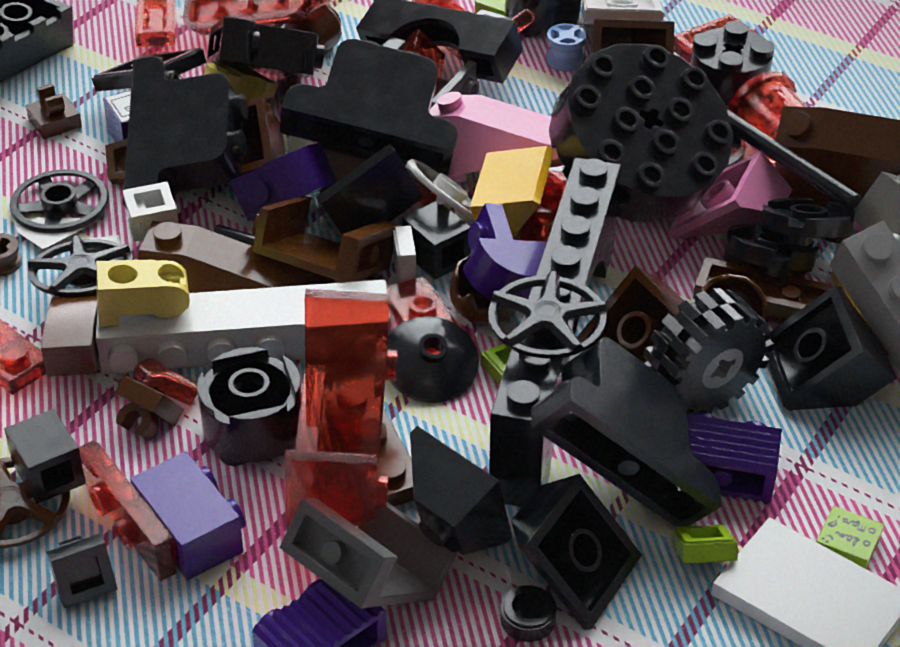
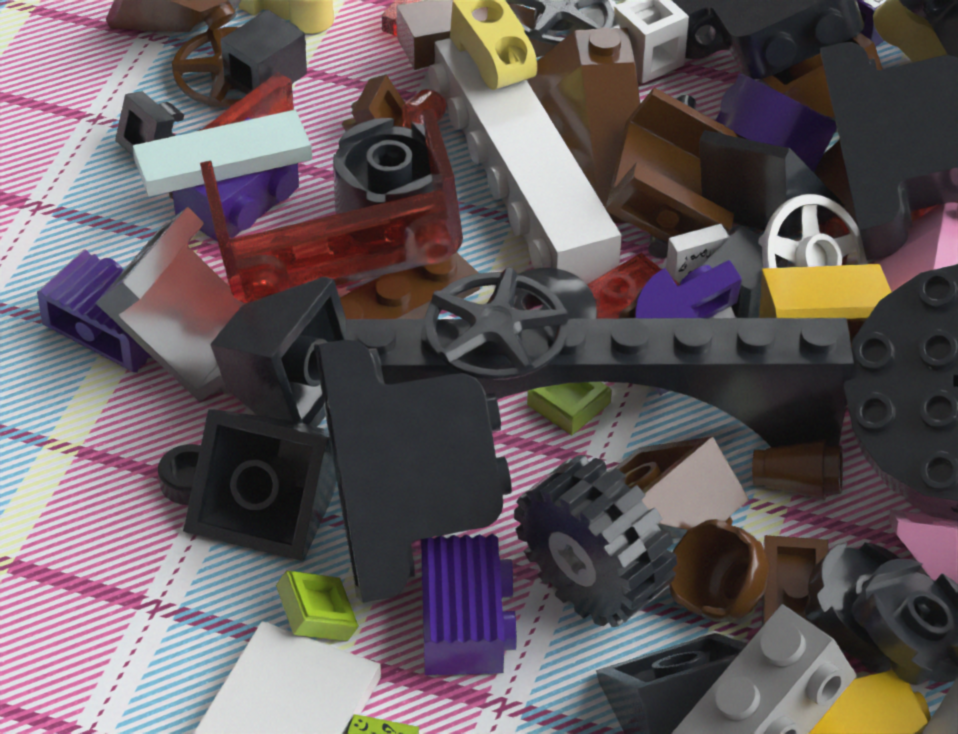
camera: 75 degrees right, 5 degrees up
(181, 499) = (233, 148): none -> light aqua tile
(631, 247) = (800, 468): none -> reddish brown cone

